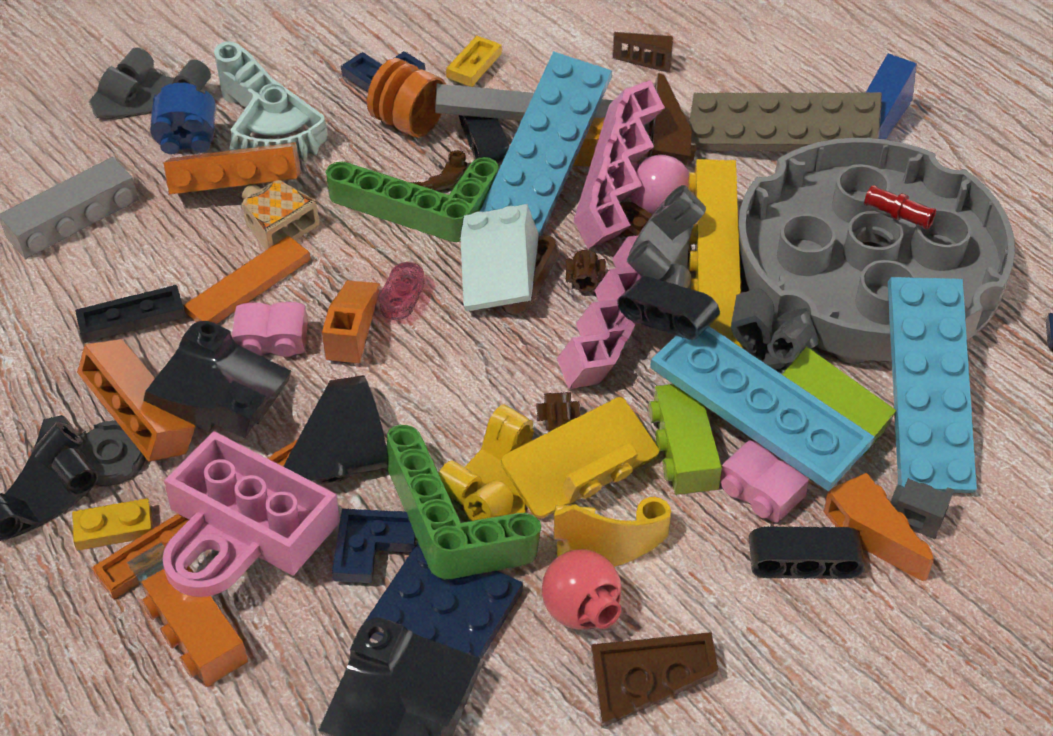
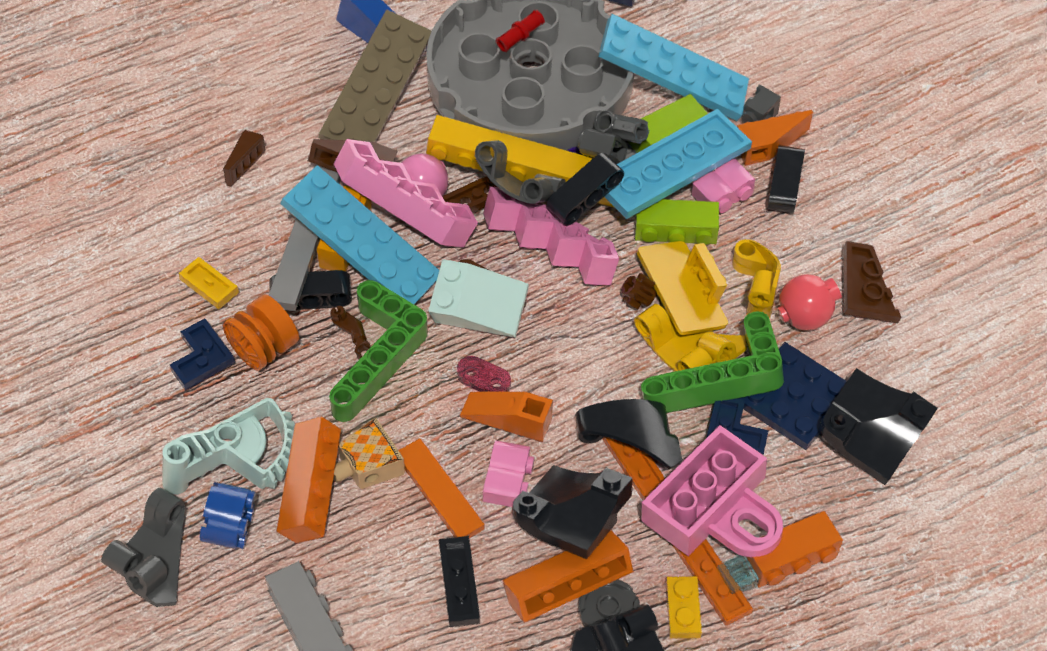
camera: 80 degrees left, 5 degrees up
(585, 270) = (498, 248): reddish brown gear -> none

